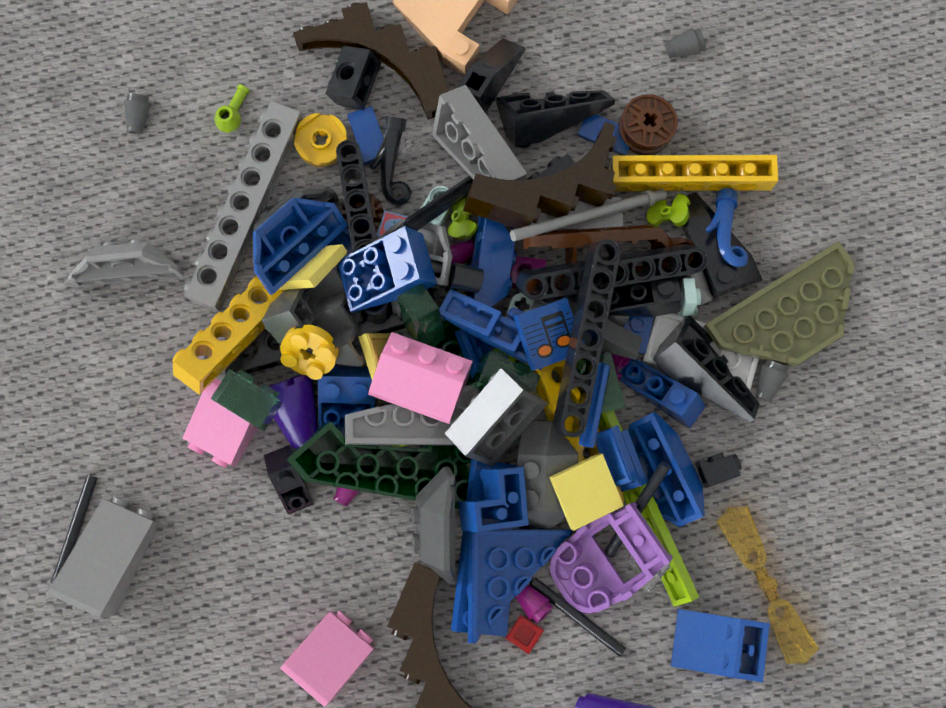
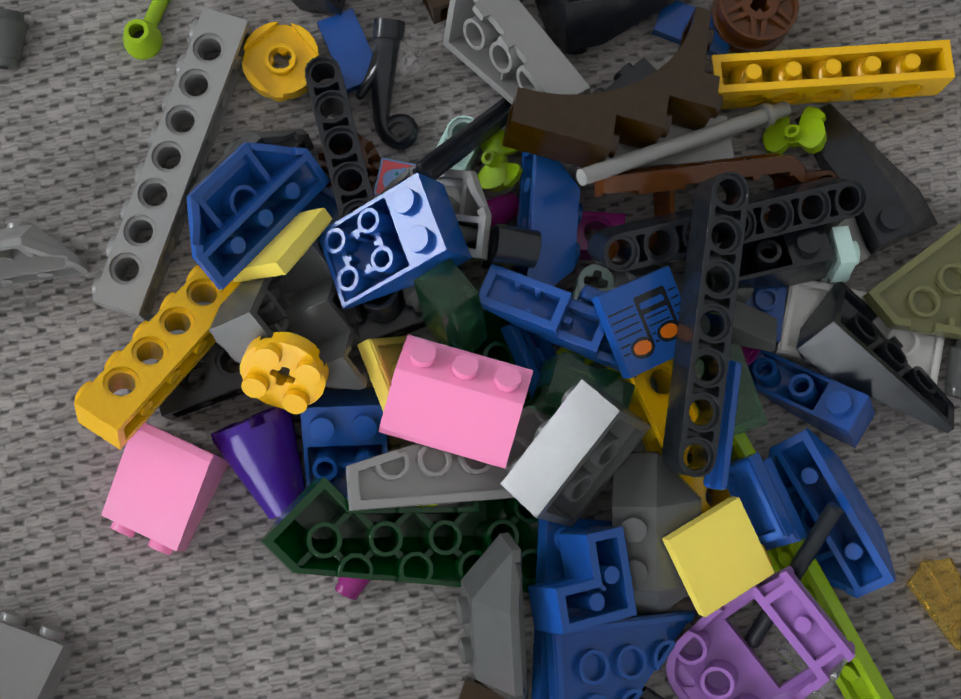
camera: 10 degrees left, 0 degrees up
(246, 399) = (193, 453): clear green brick -> none
(286, 481) = (263, 573): black slope -> none
(718, 469) = (903, 506): black brick -> none
(726, 204) = (877, 118): blue plant -> none

